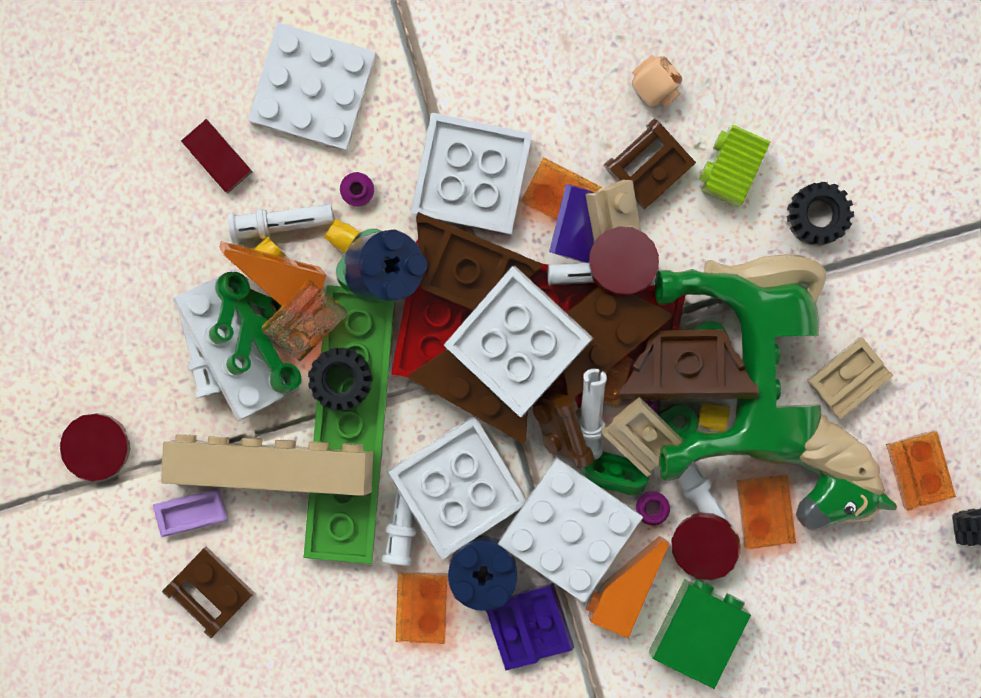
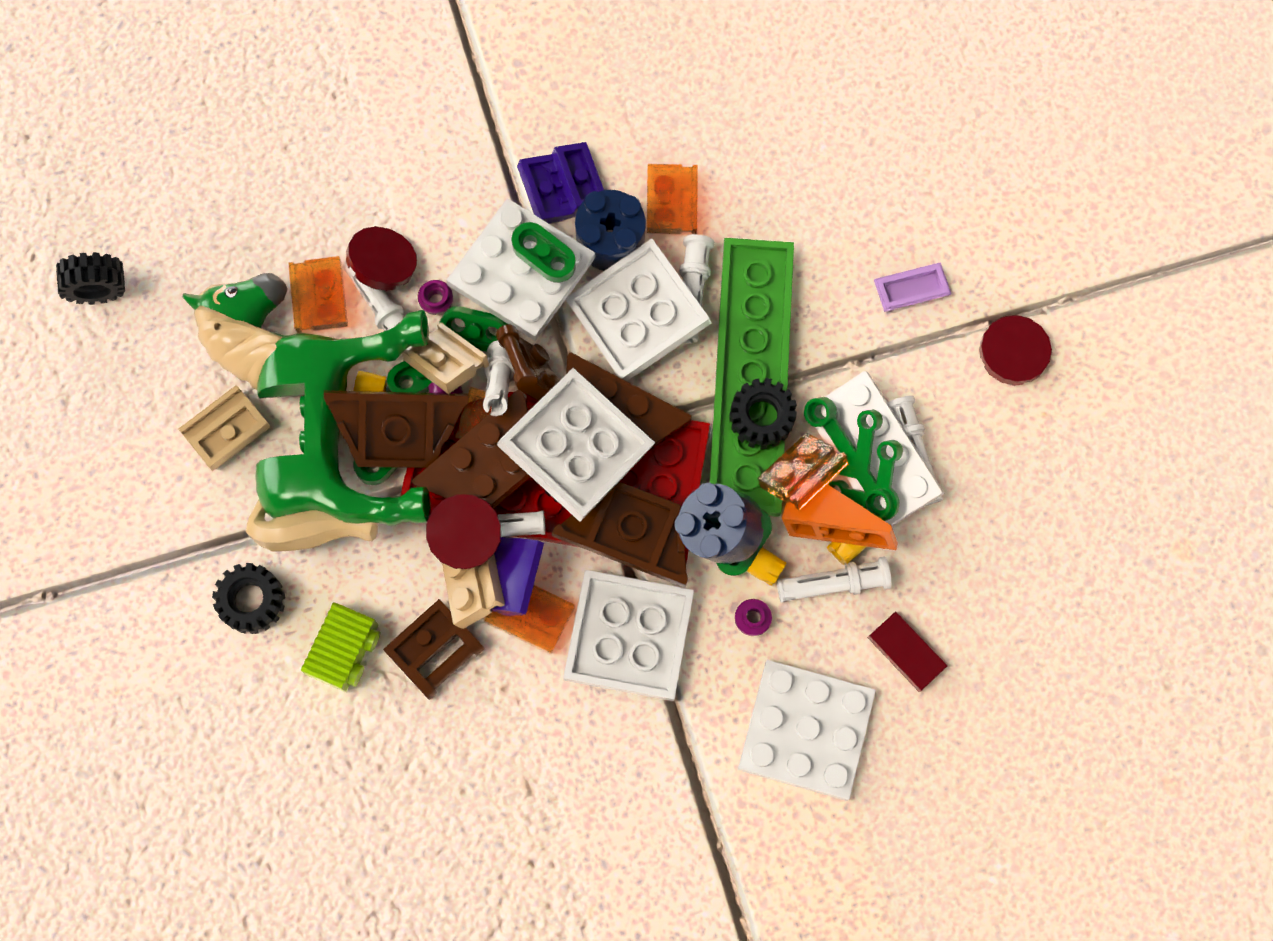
camera: 170 degrees right, 15 degrees down
(216, 583) = (881, 220): reddish brown plate -> none
(267, 466) = (834, 327): tan brick -> none
(548, 538) = (545, 253): none -> green plate
(624, 593) = (464, 216): orange slope -> none
(657, 81) = (424, 739): light nougat head -> none
(700, 632) = (389, 177): green brick -> none
(920, 470) = (154, 337): clear orange plate -> none

